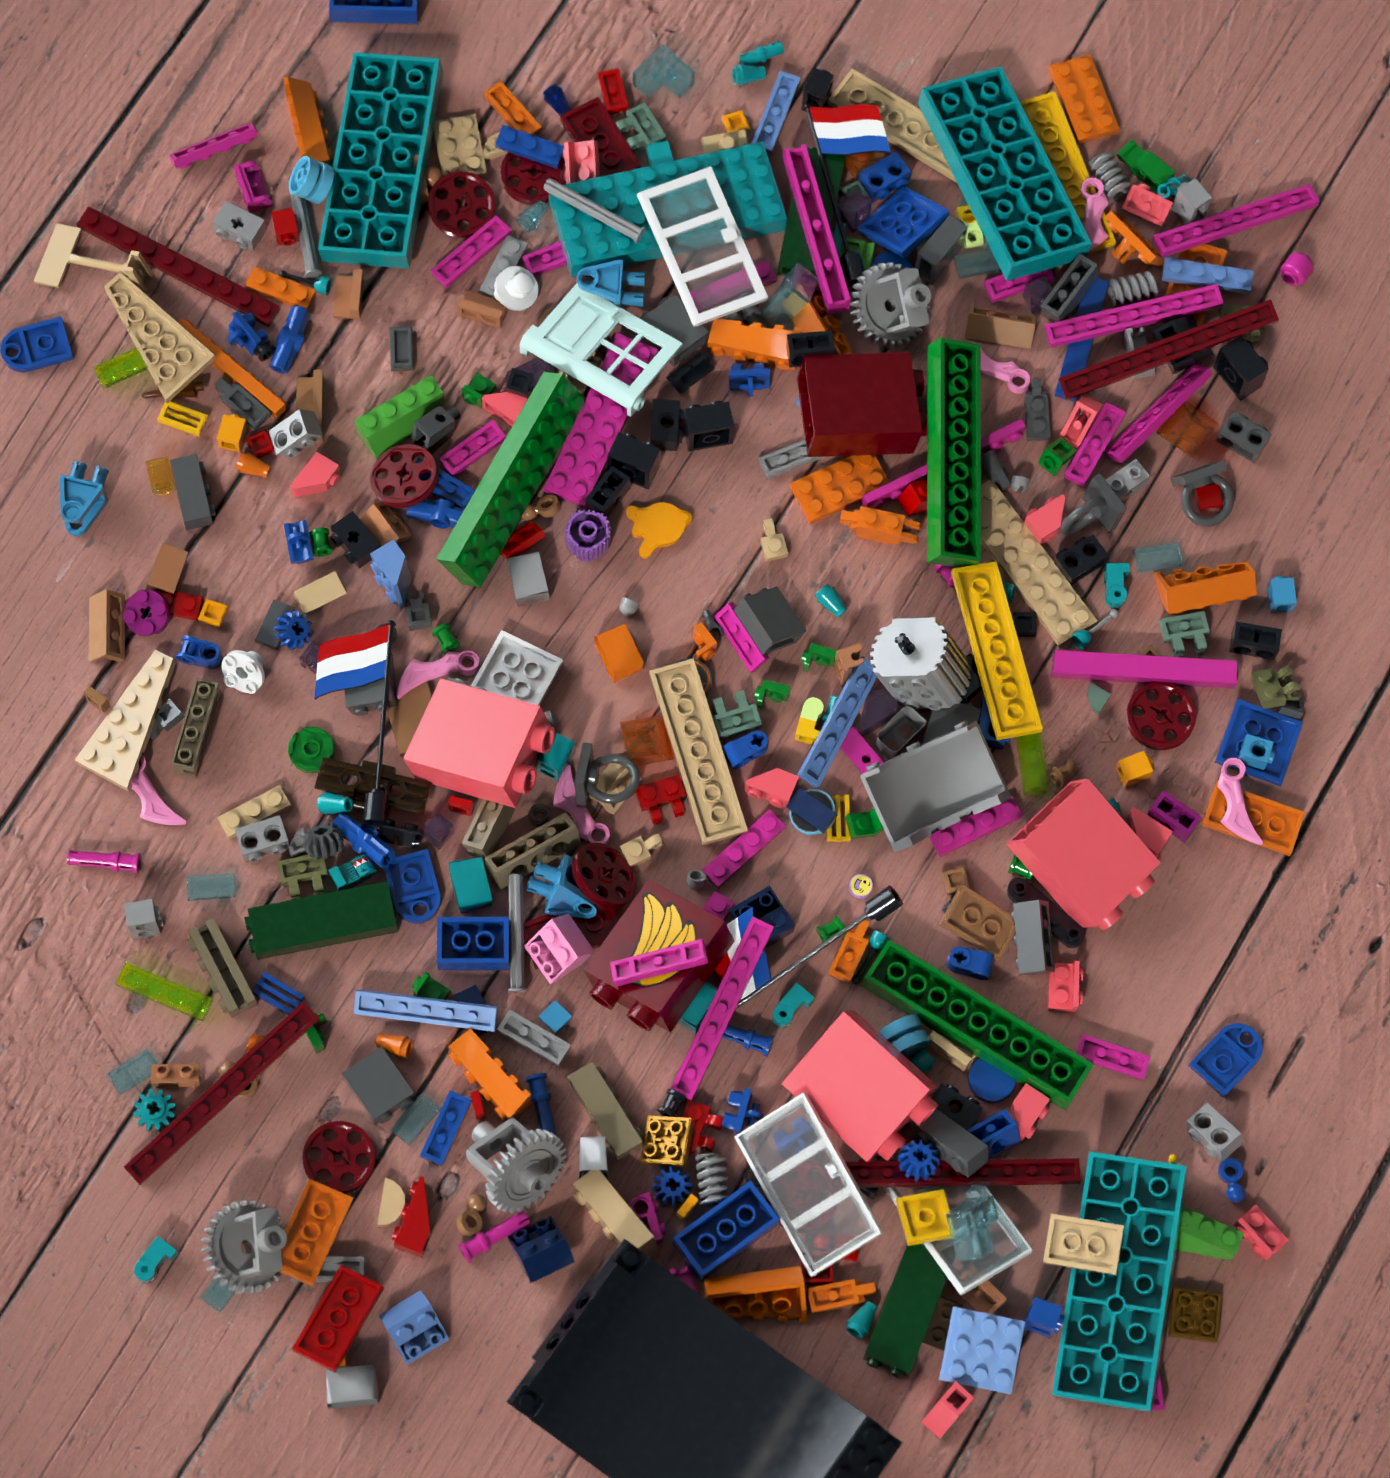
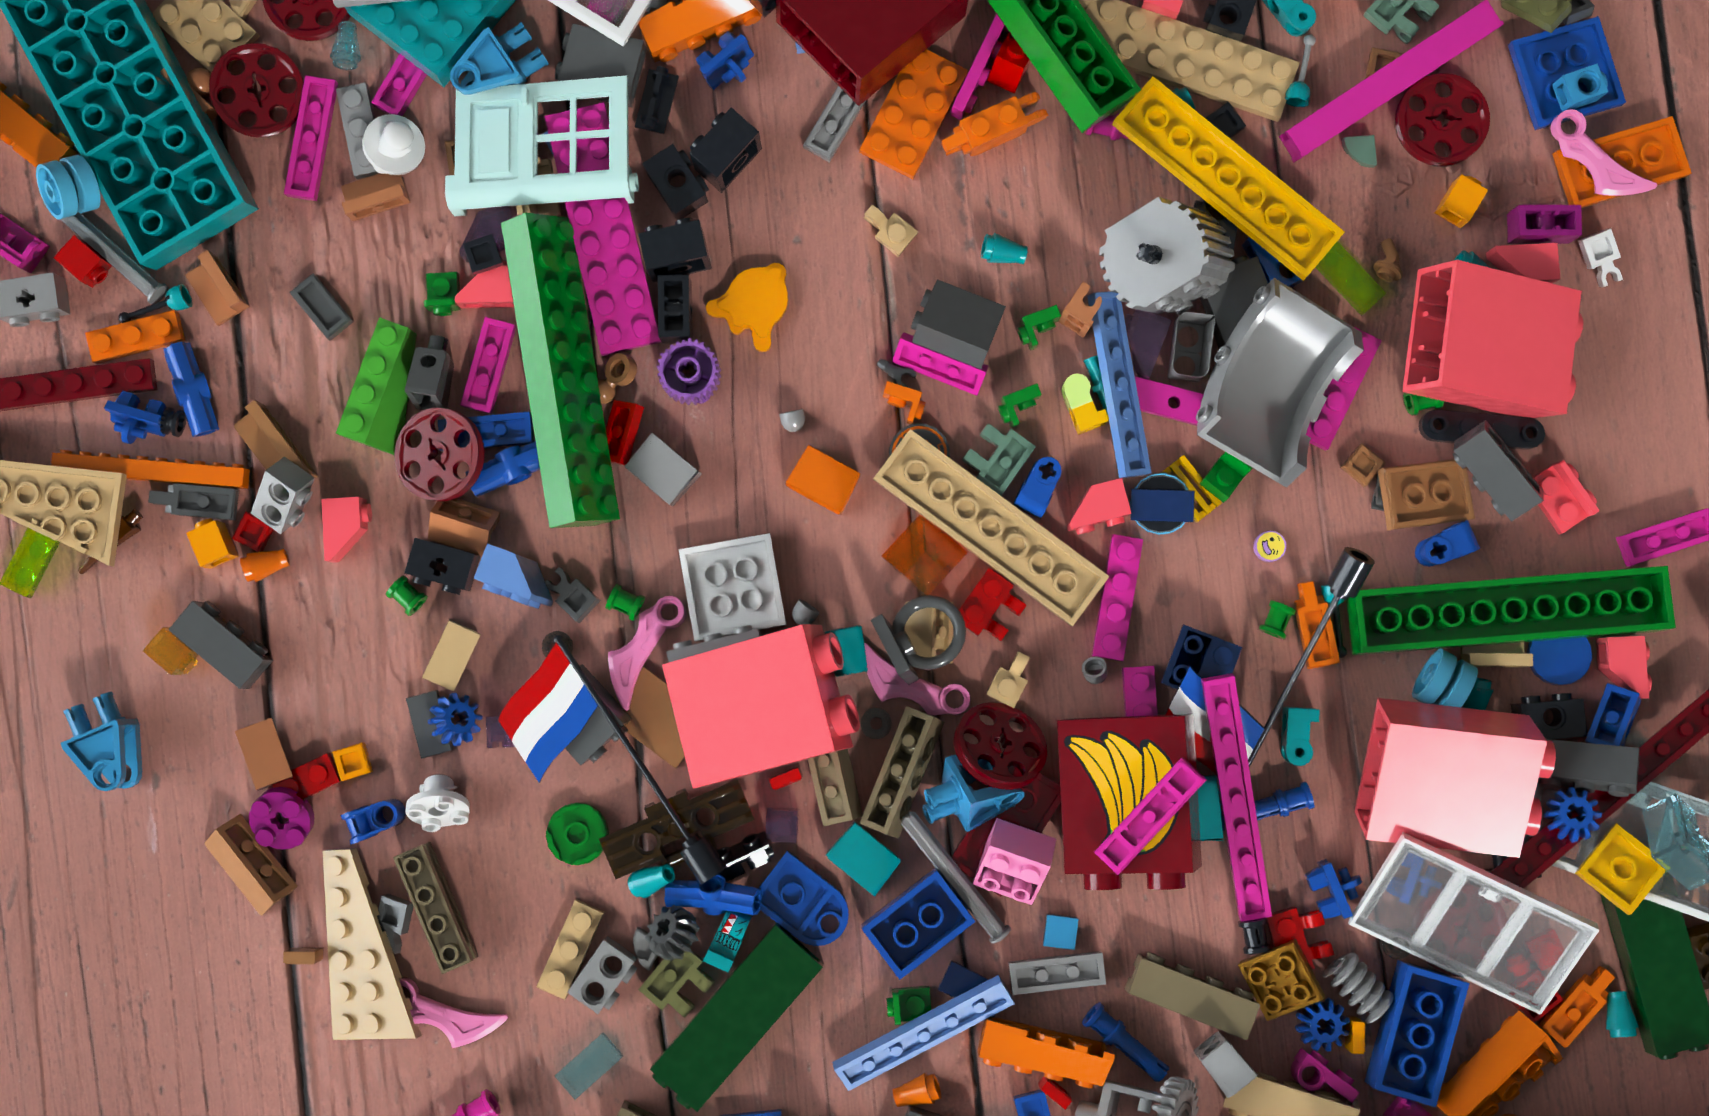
camera: 30 degrees left, 15 degrees up
(180, 426) = (170, 558): yellow tile -> none
(298, 542) = (382, 615): blue hips -> none
(1199, 860) = (1599, 252): none -> white plate

